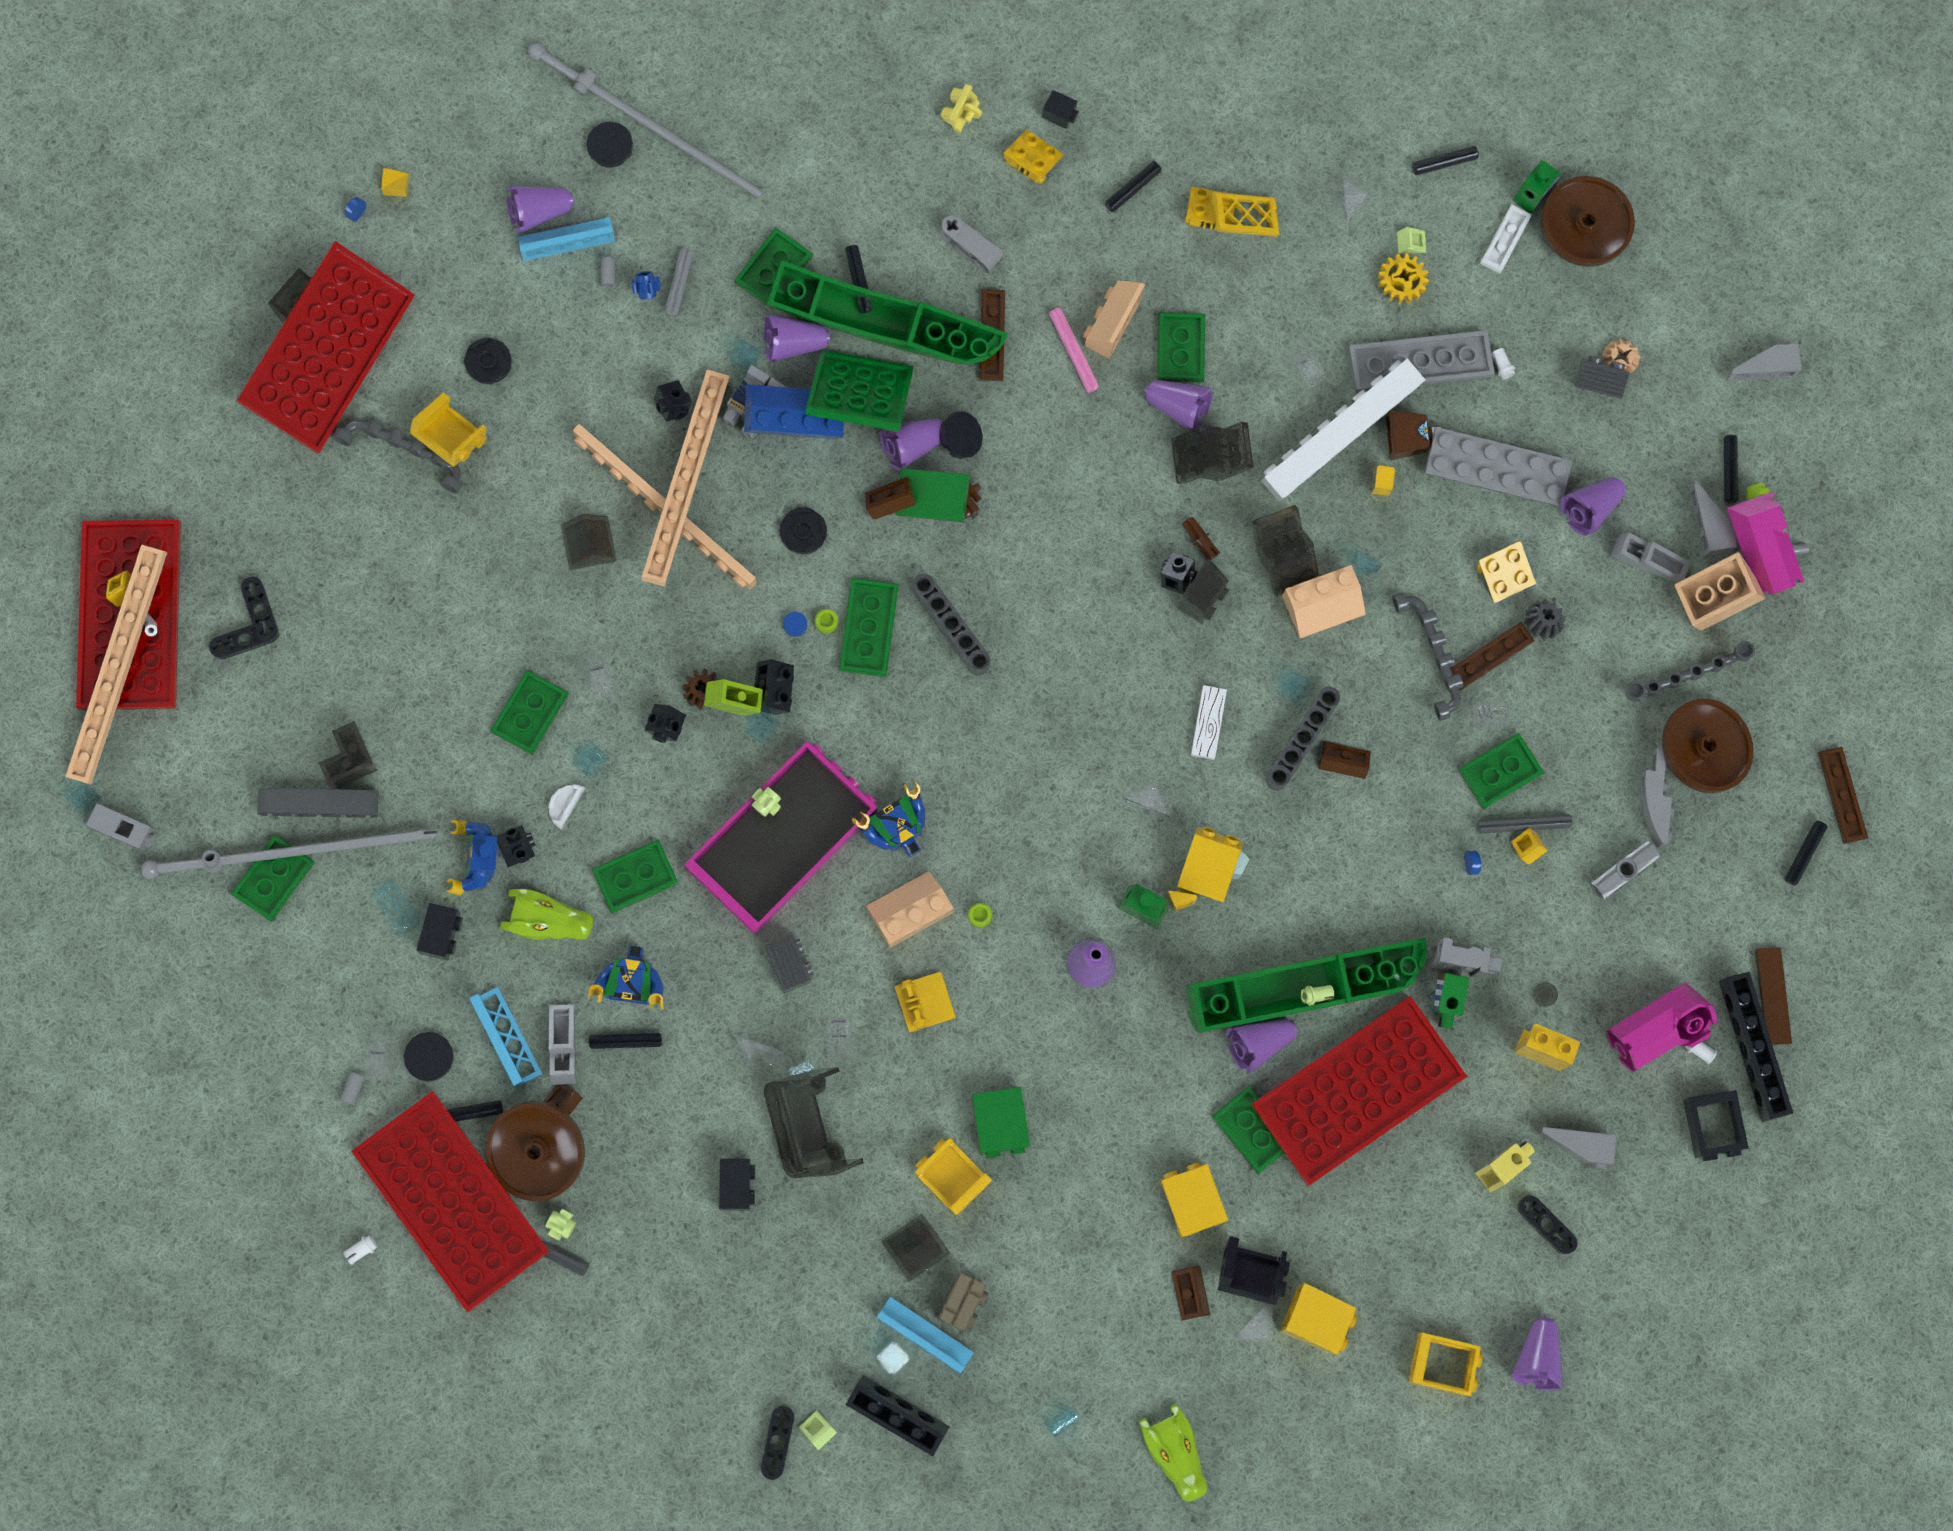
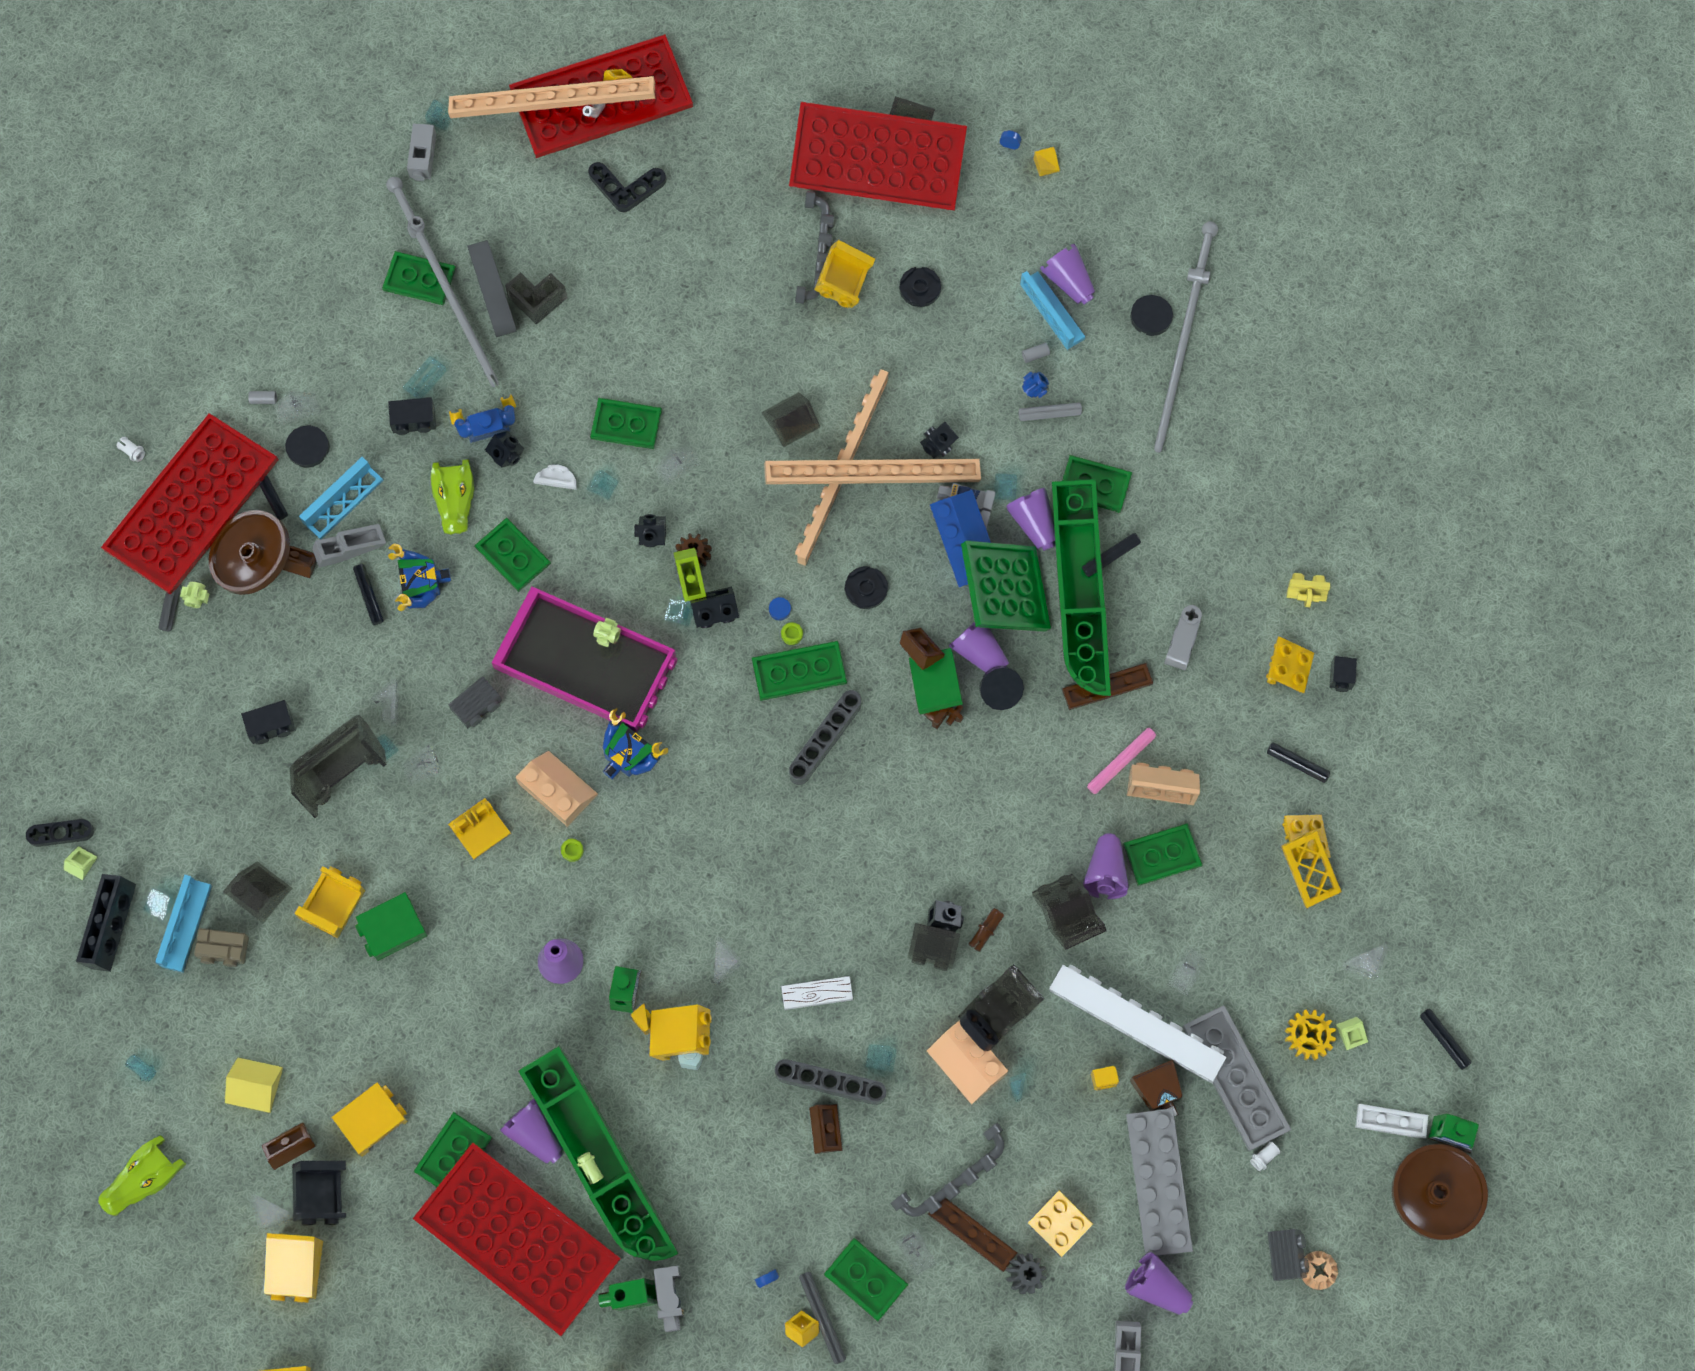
camera: 80 degrees right, 5 degrees down
(1117, 1310) = (252, 1084): none -> light yellow slope
(1304, 577) = (979, 1030): none -> black beam

